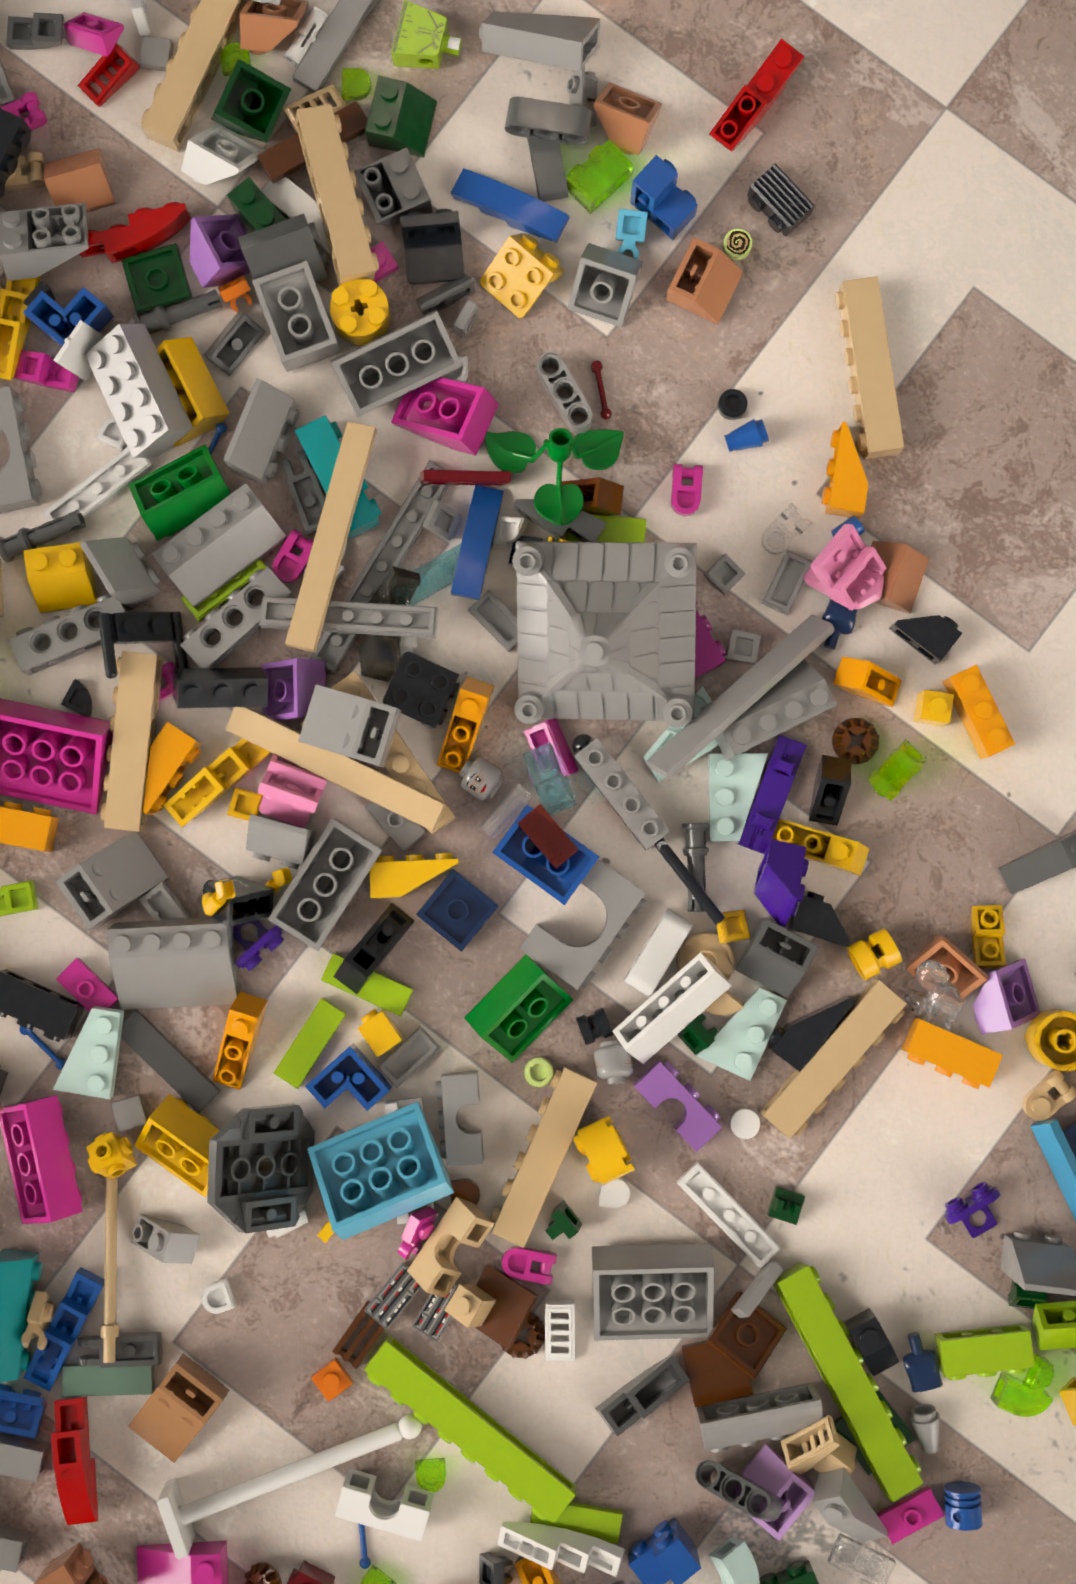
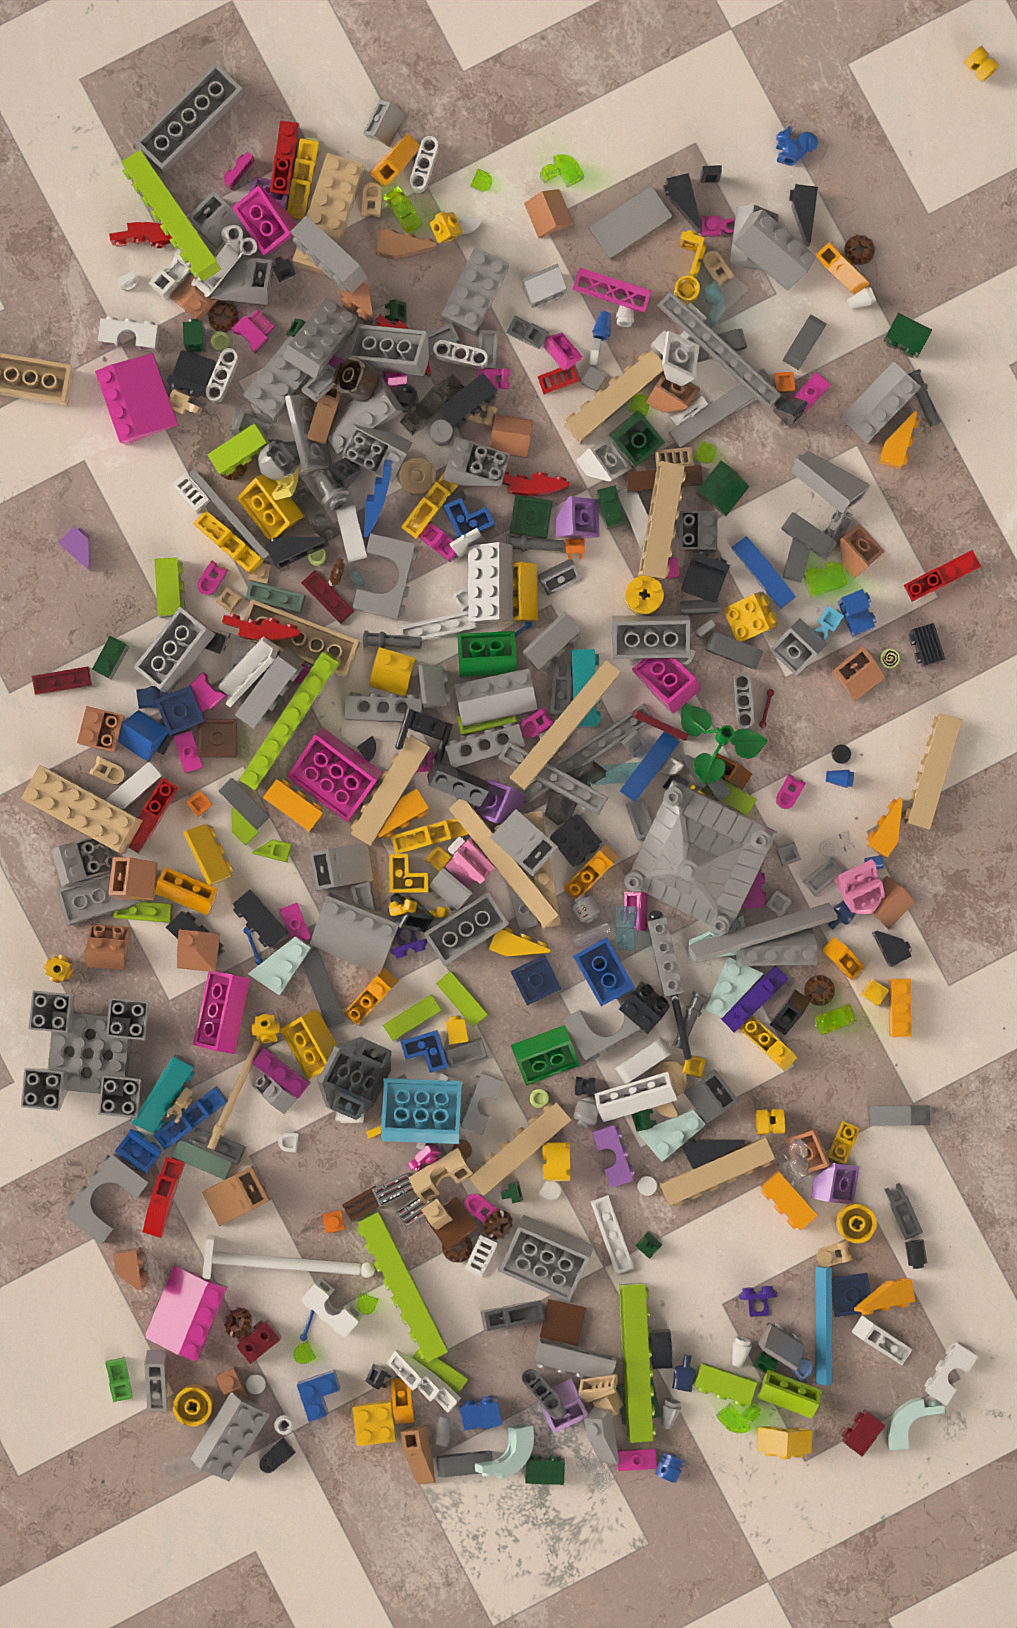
camera: 20 degrees right, 0 degrees up
(129, 1113) = (286, 1009): light grey tile -> none
(144, 1204) = (281, 1073): none -> magenta arch
(203, 856) = (401, 880): none -> yellow brick
(259, 772) = (456, 845): none -> white tile
(284, 246) = (614, 543): dark grey brick -> none
(296, 316) = (604, 581): light grey slope -> none
(373, 948) = (476, 979): black slope -> none
(422, 38) = (758, 446): lime torso -> none
(519, 330) = (734, 650): none -> dark grey beam
(548, 836) = (610, 962): clear red tile -> none
(553, 1279) = (491, 1224): none -> reddish brown gear
(626, 877) = (645, 1007): none -> black bracket
(746, 1340) = (589, 1308): reddish brown tile -> none
(757, 1289) = (609, 1284): light grey tile -> none
(779, 879) = (735, 1050): dark purple slope -> none
(818, 920) = (746, 1085): black slope -> none
(984, 1293) = (741, 1349): none -> white cone

